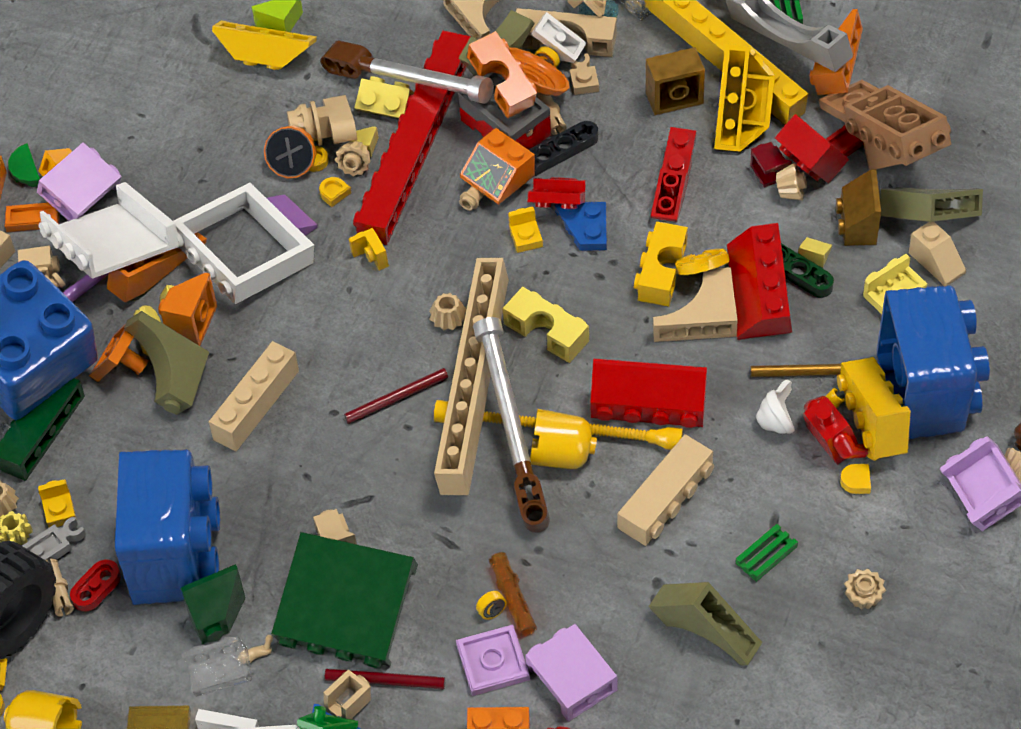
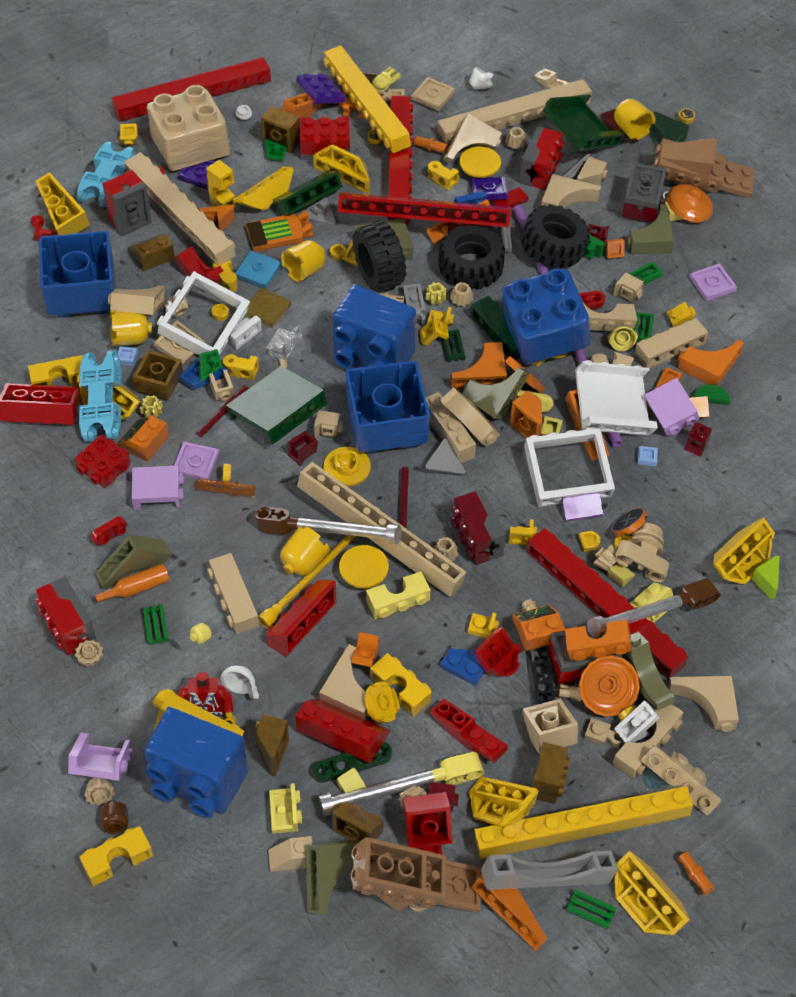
camera: 115 degrees right, 0 degrees up
(92, 495) = (432, 330): none -> yellow bracket
(100, 472) = (455, 356): none -> dark green tile
(113, 145) = (698, 439): none -> dark red window
(122, 402) = (488, 370): none -> orange arch
(165, 189) = (647, 456): none -> light blue tile
(214, 603) = (318, 350): dark green slope -> none
(229, 368) = (470, 417): none -> tan arch
(280, 450) = (387, 406): none -> blue brick
(294, 686) = (241, 367): none -> yellow leg
(309, 374) = (445, 460): none -> light grey piece
(382, 485) = (347, 465): none -> yellow piece
(392, 536) = (302, 447): none -> dark red window
(397, 283) = (478, 527): none -> dark red piece
(536, 372) = (363, 566): none -> yellow piece
(614, 108) = (550, 724): none -> tan slope
(639, 312) = (366, 649): none -> orange slope
(676, 684) = (109, 530): none -> red plate
(730, 168) = (452, 770): none -> piece
(740, 501) = (200, 633): none -> light yellow piece
(742, 604) = (136, 583): none -> orange piece
(795, 370) = (270, 712): pearl gold bar -> none
(833, 328) = (272, 741): none -> pearl gold slope
(841, 637) = (64, 615): none -> red piece

